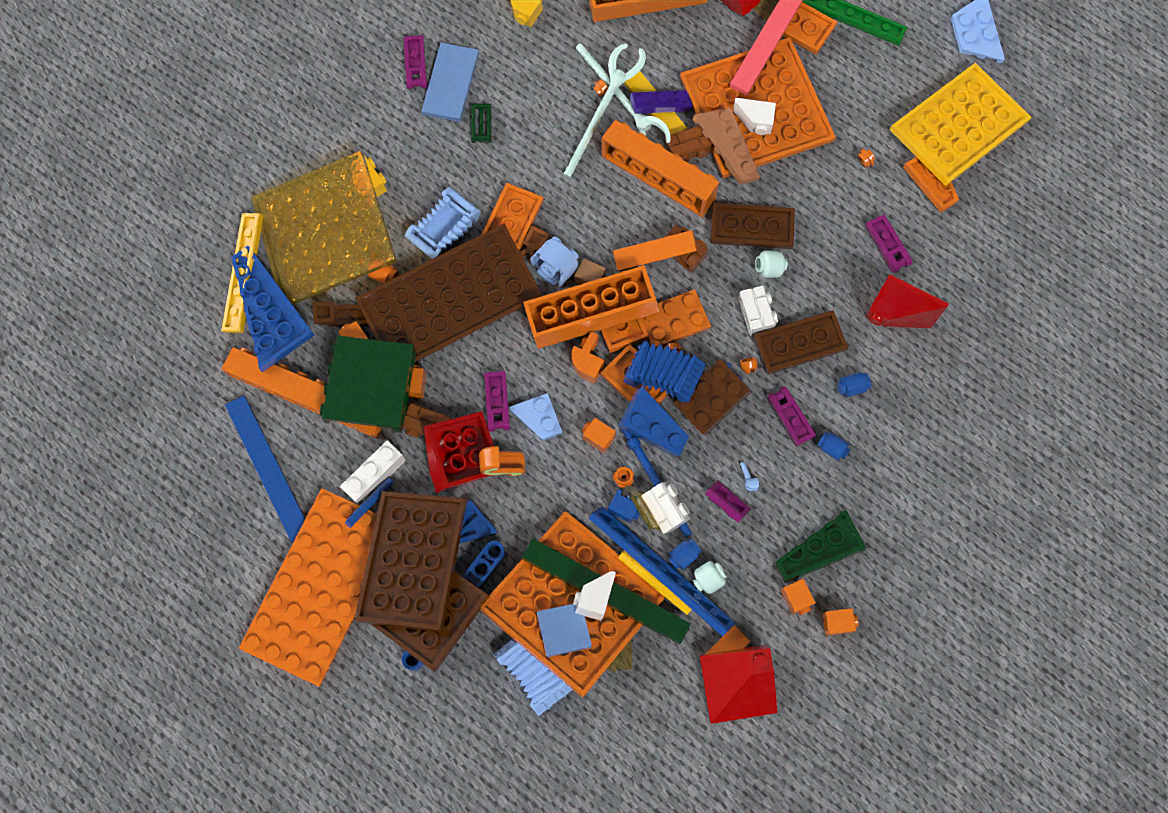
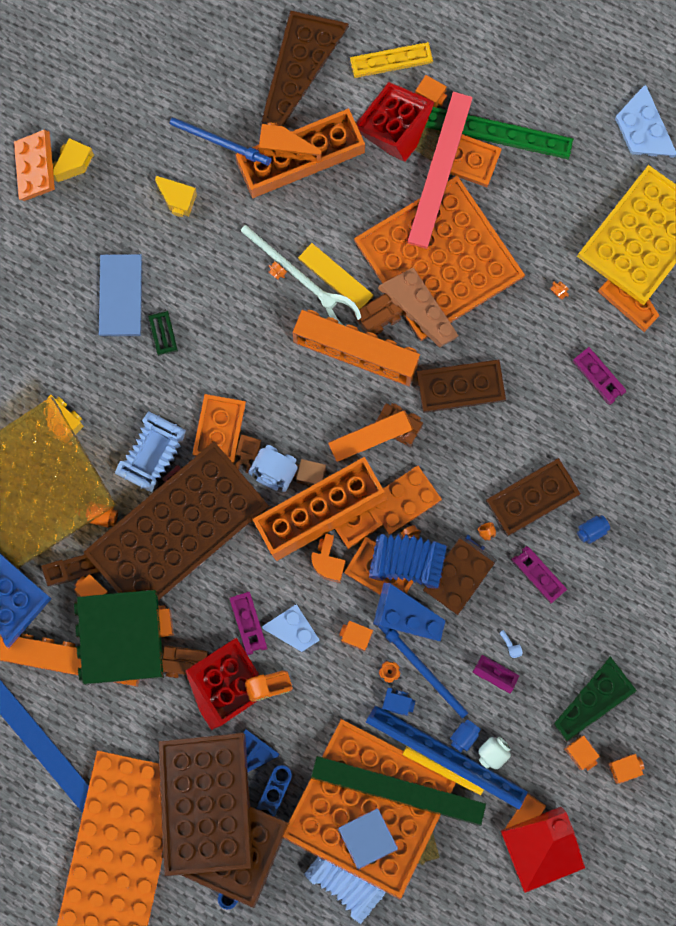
camera: 15 degrees left, 5 degrees up
(368, 503) = (147, 754): blue bar -> none
(373, 472) = (144, 724): white brick -> none
(415, 61) = (79, 280): magenta plate -> none
(594, 597) = (390, 801): white slope -> none
(617, 78) = (292, 259): light aqua piece -> none
(644, 511) = (421, 702): clear yellow piece -> none
(660, 101) = (341, 274): dark purple plate -> none
(666, 507) = (438, 694): white brick -> none
(755, 115) = (441, 270): white slope -> none
(757, 310) = (484, 474): white brick -> none
(771, 264) = (487, 423): light aqua head -> none
(834, 446) = (587, 596): blue brick -> none
(904, 306) = (622, 442): red slope -> none

